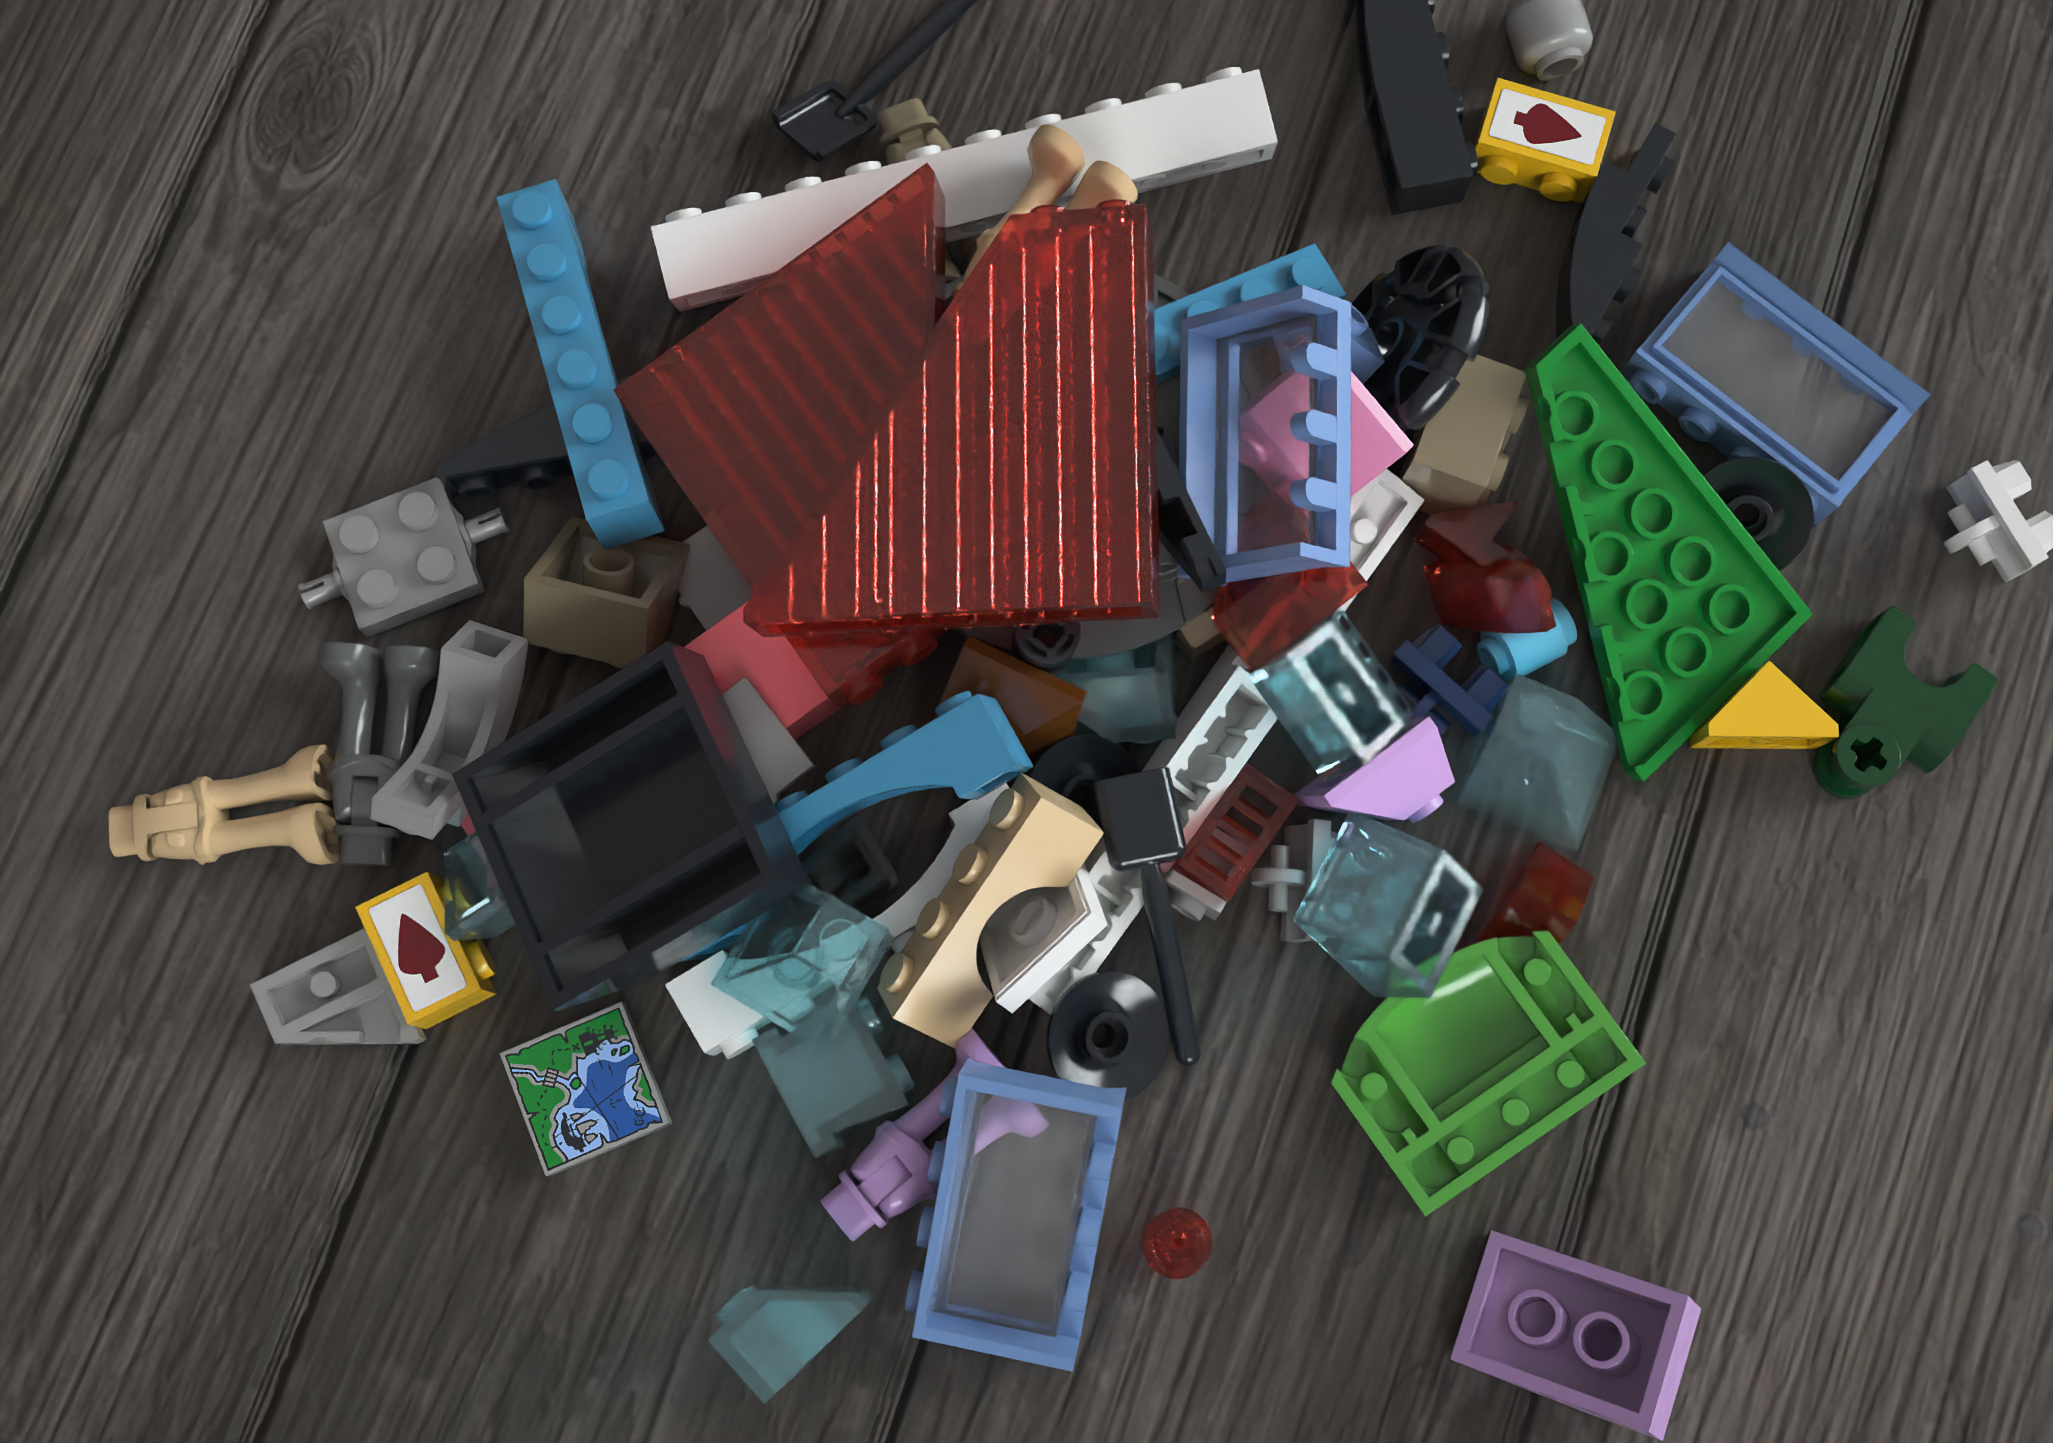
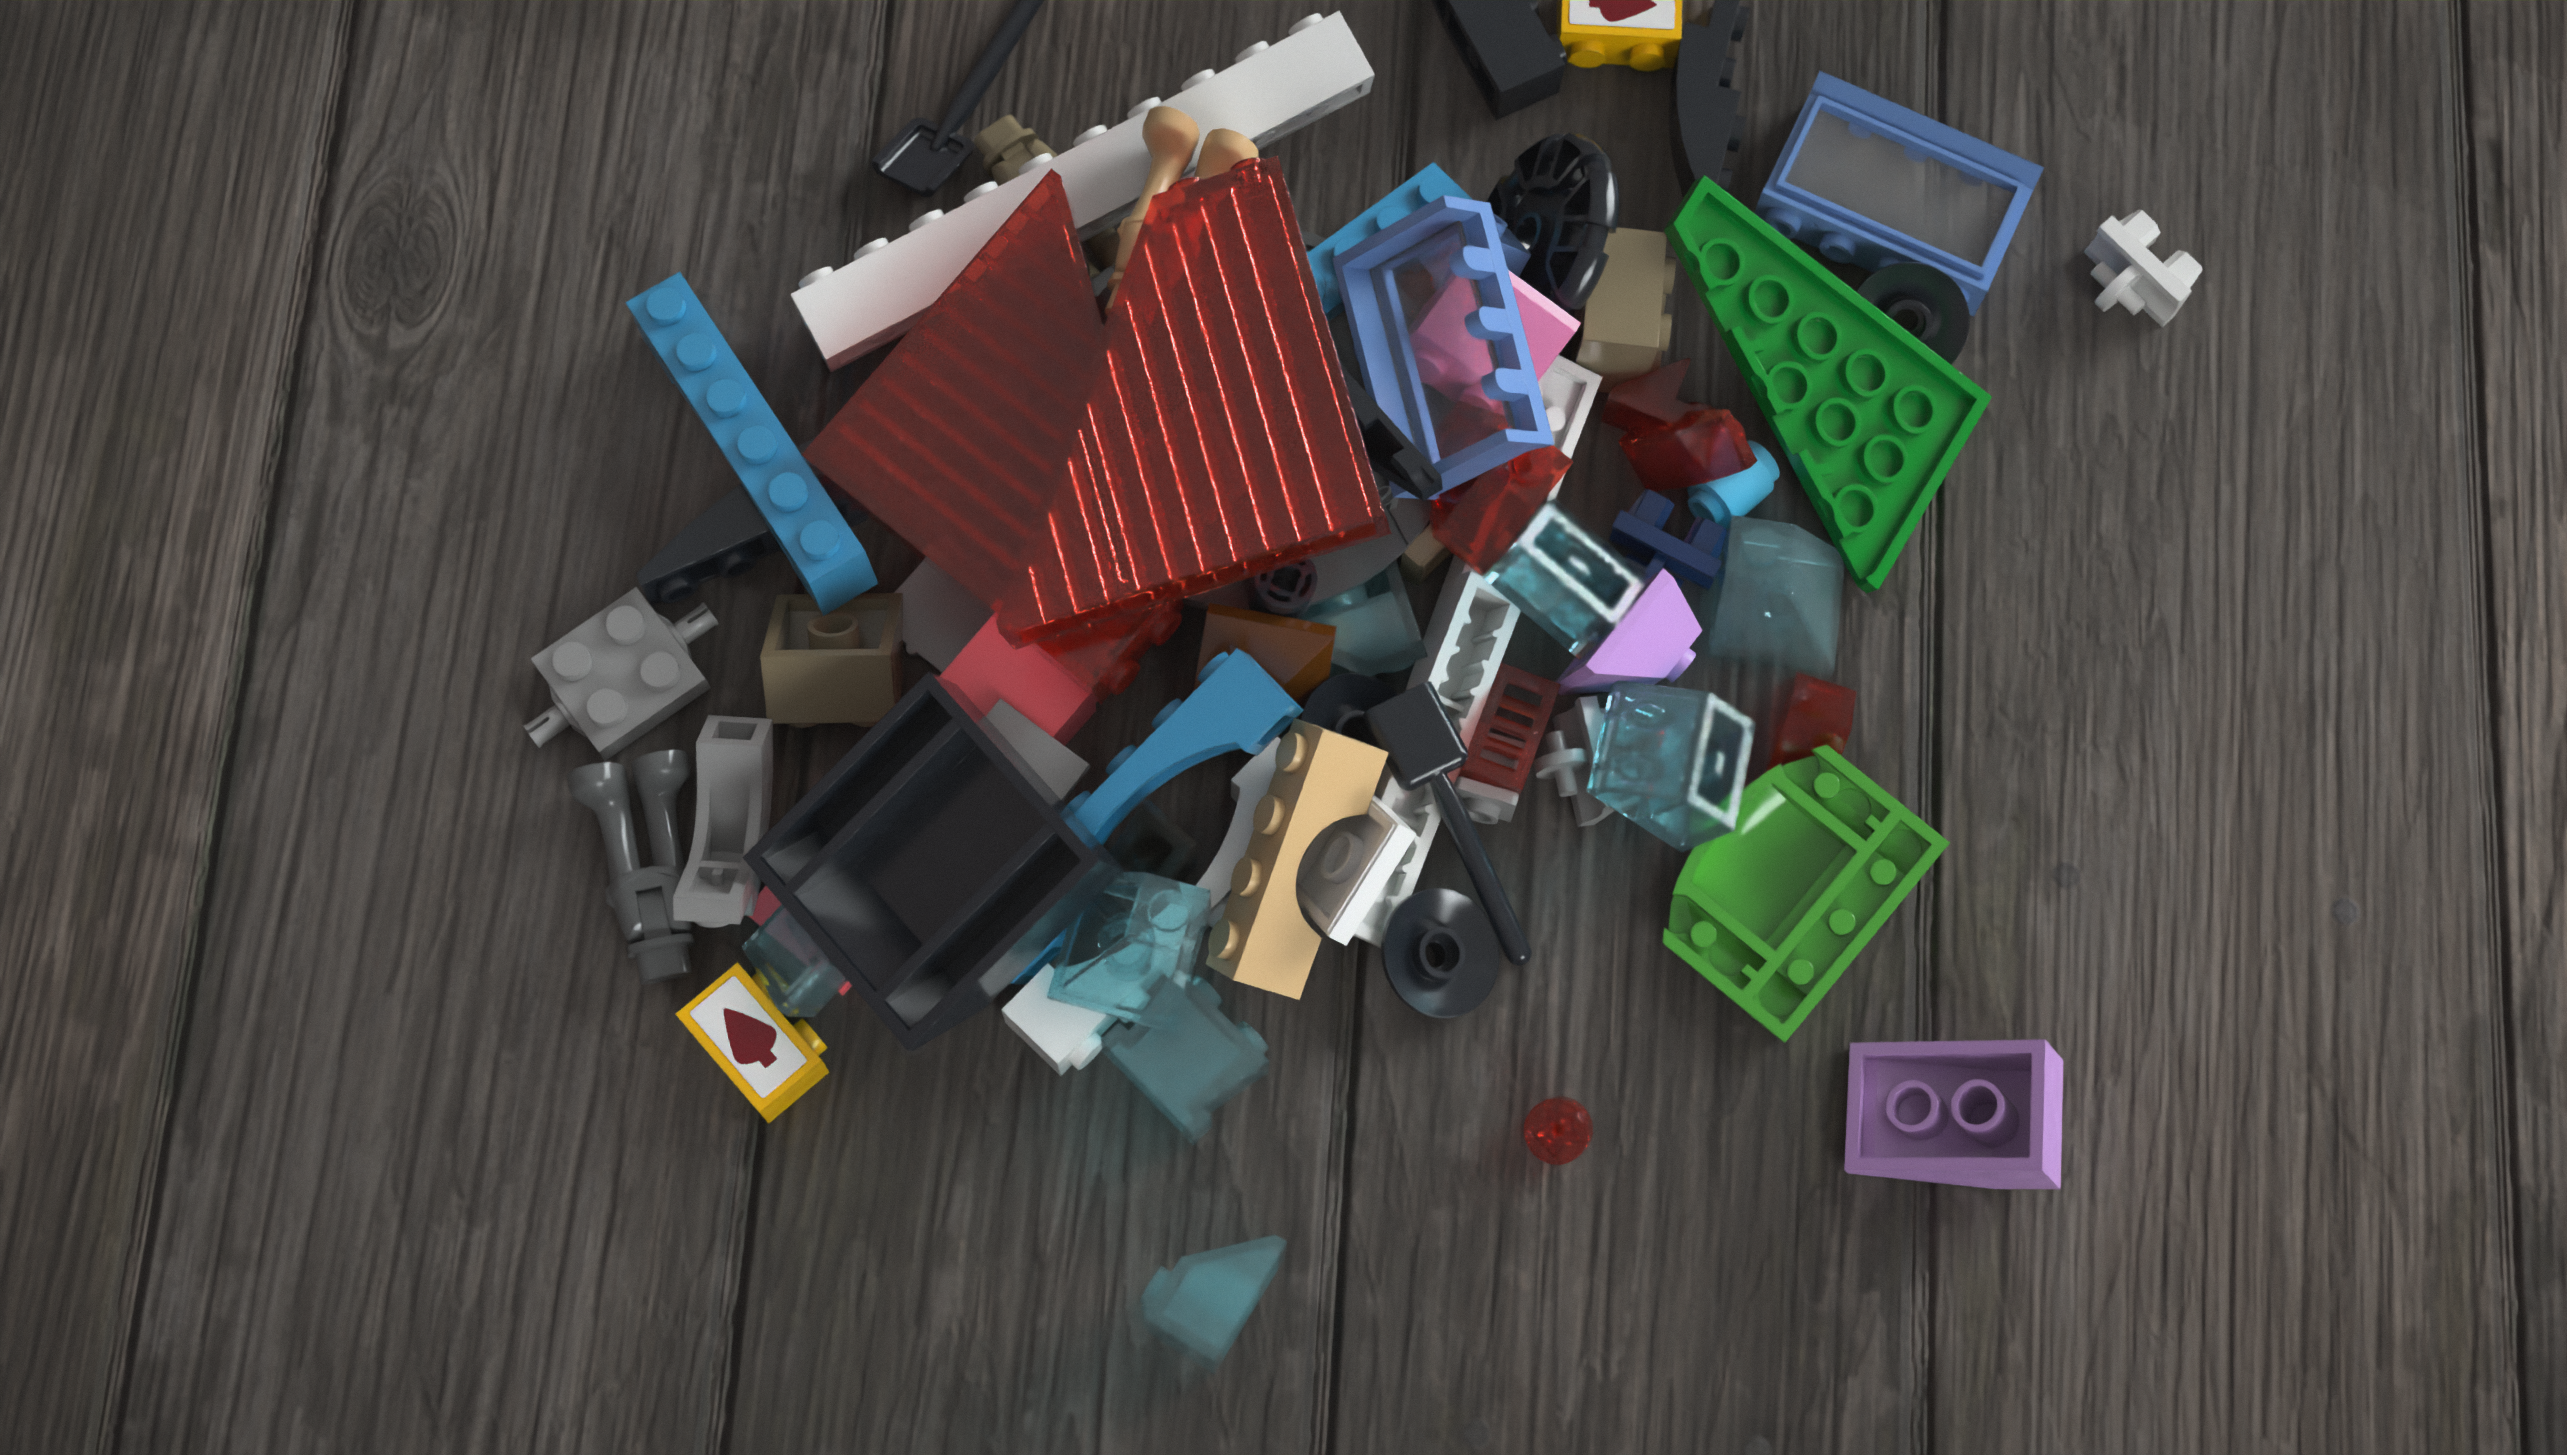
camera: 20 degrees left, 5 degrees down
(195, 821) = (482, 981): tan piece -> none
(334, 999) = (677, 1111): light grey wing -> none
(585, 1088) = (945, 1136): tile -> none
(896, 1163) = (1272, 1128): lavender piece -> none
(1014, 1213) = (1399, 1134): window -> none
(1766, 714) = (1975, 501): yellow slope -> none
(1891, 712) = (2088, 469): dark green piece -> none

